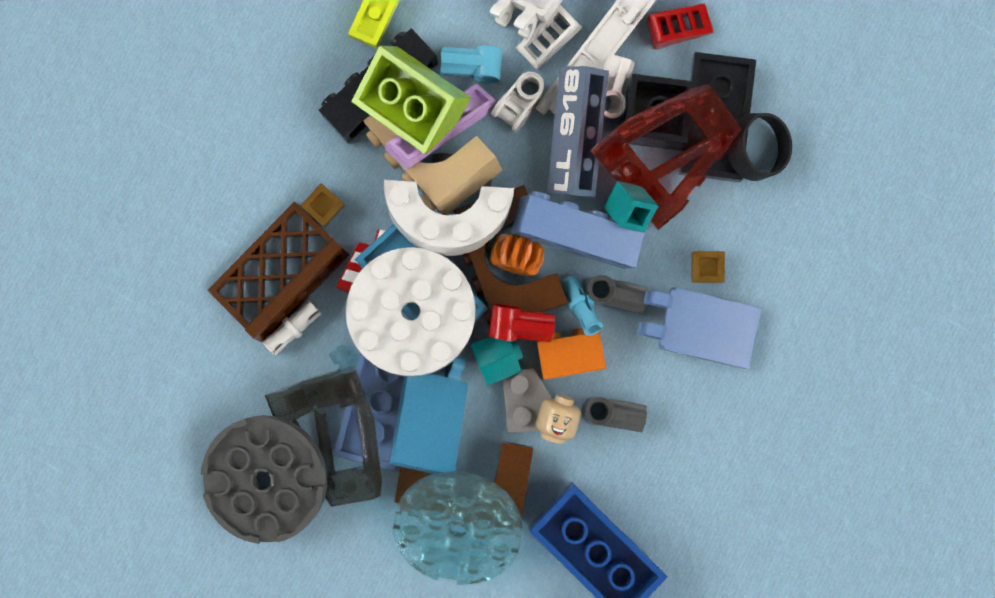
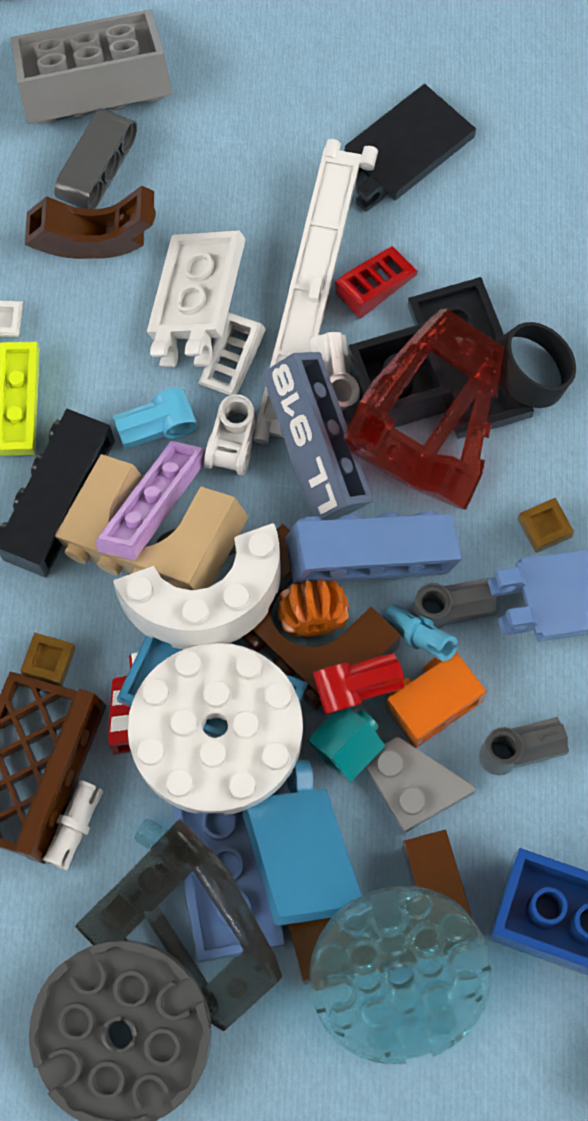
camera: 20 degrees left, 15 degrees down
(410, 98) = (101, 479): lime slope -> none
(558, 419) = (459, 779): tan head -> none
(631, 206) = (421, 491): teal brick -> none

